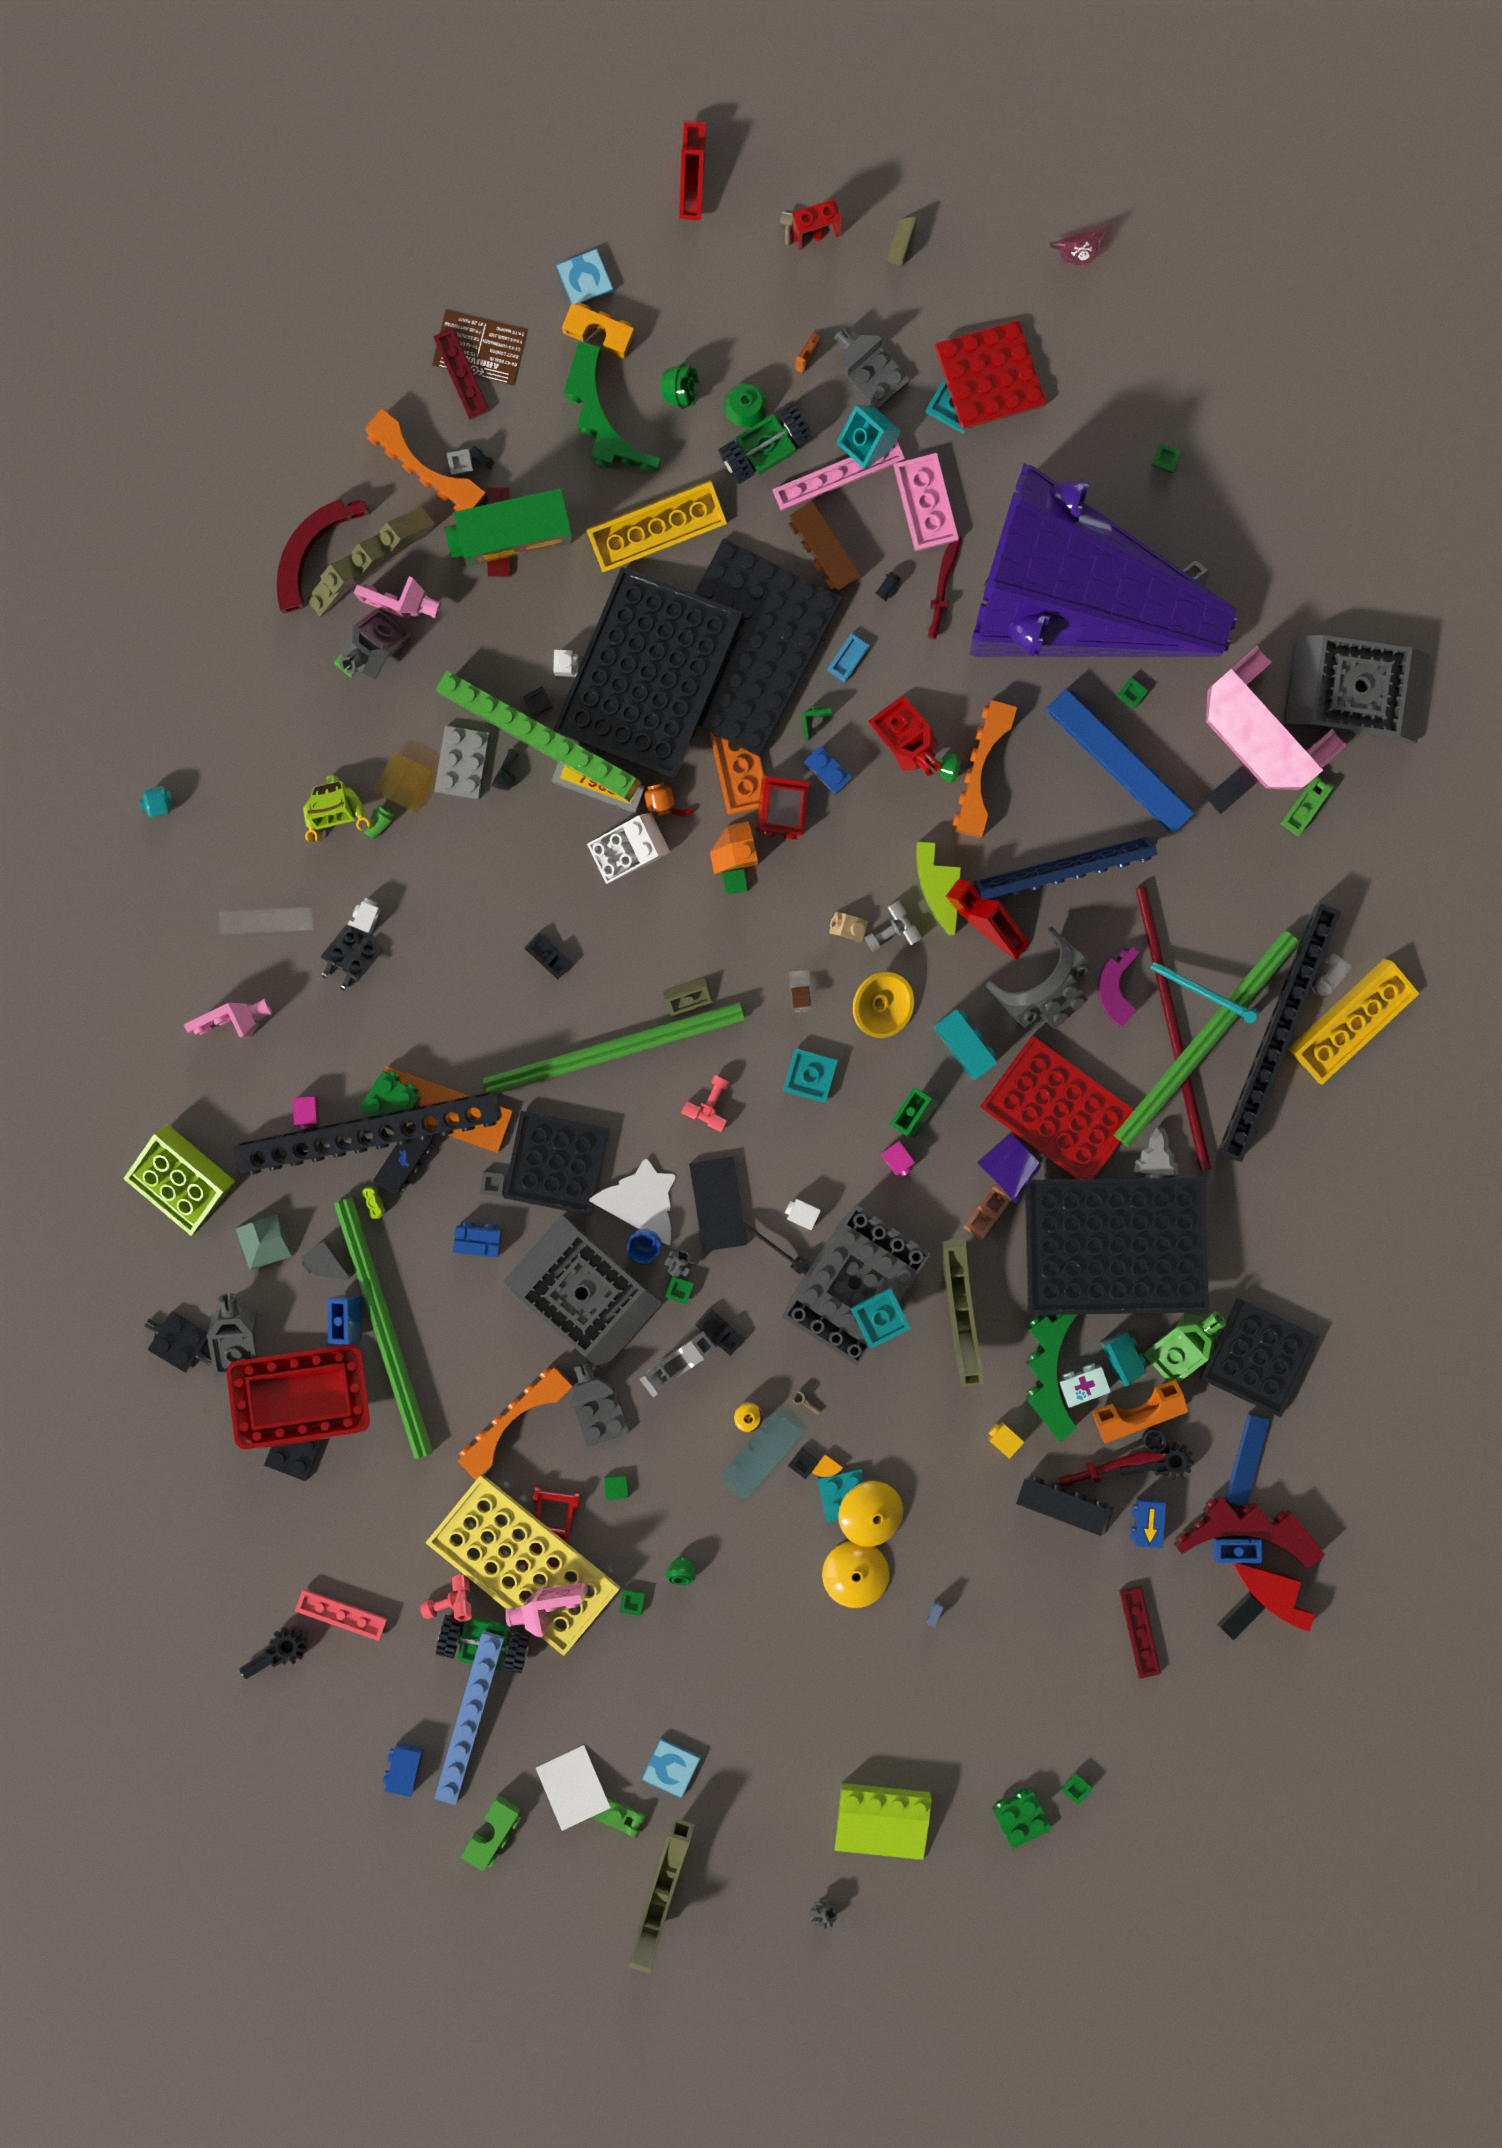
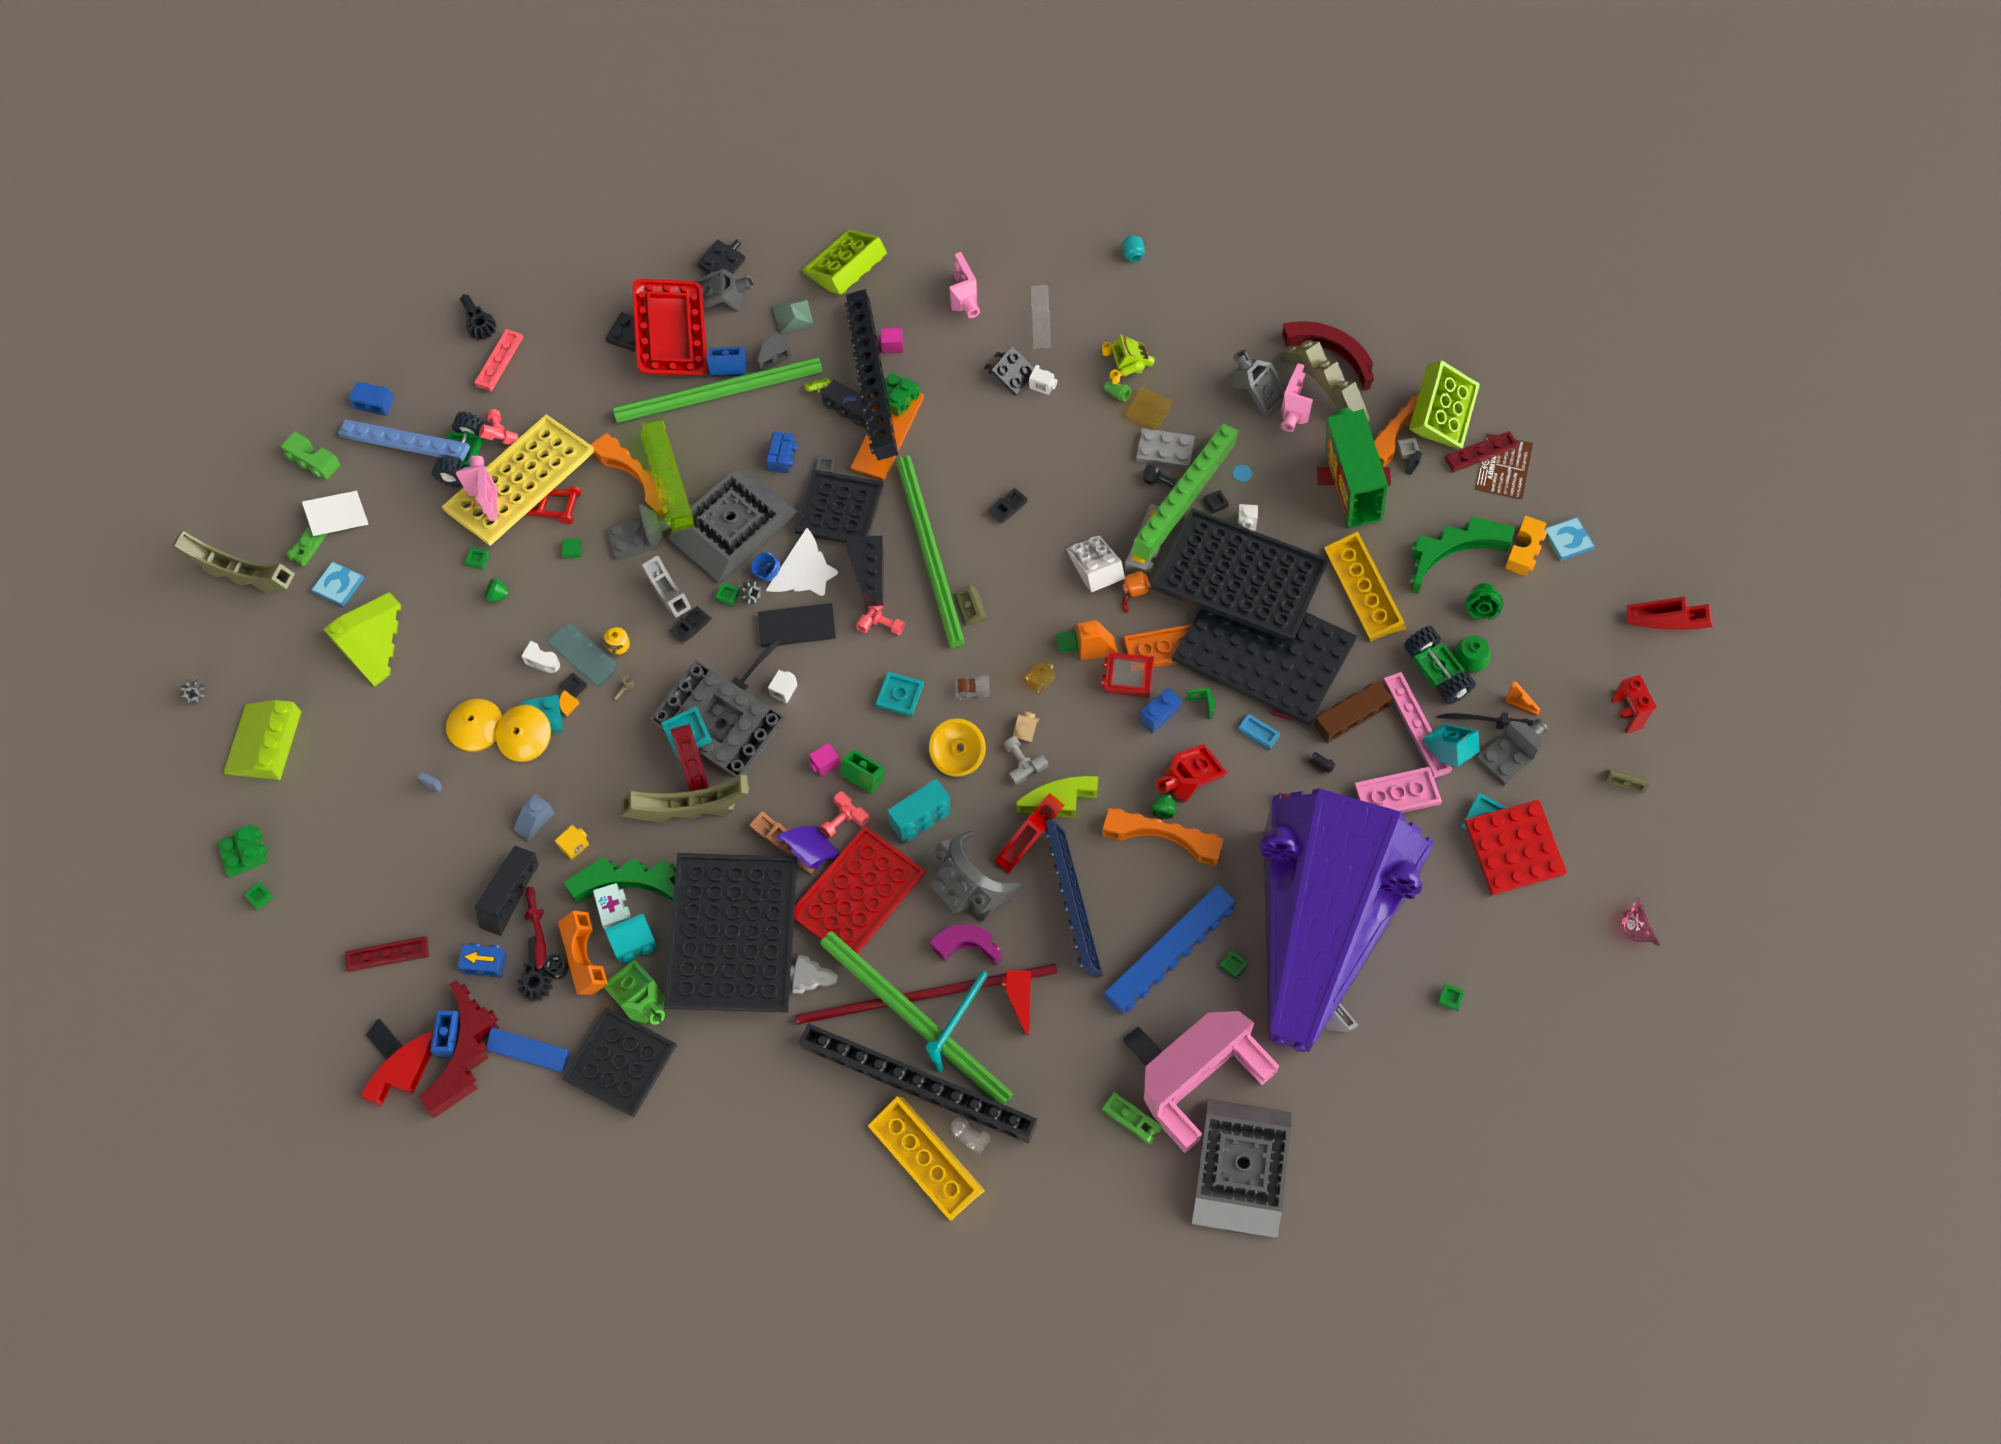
camera: 90 degrees right, 25 degrees down
(407, 414) = (1444, 405): none -> lime slope
(494, 668) = (1242, 473): none -> dark azure sticker
(523, 1377) = (667, 475): none -> clear neon green brick
(643, 1121) = (868, 564): none -> black wedge
(743, 1719) = (367, 636): none -> lime slope
(775, 1498) = (539, 659): none -> white leg
(785, 919) = (1040, 681): none -> clear yellow brick
(831, 378) = (1500, 722): none -> black sword
(915, 1310) = (689, 758): none -> dark red tile
(959, 1128) = (847, 812): none -> coral bar
(976, 1488) = (533, 817): none -> sand blue slope
(1175, 926) = (1019, 993): none -> red slope

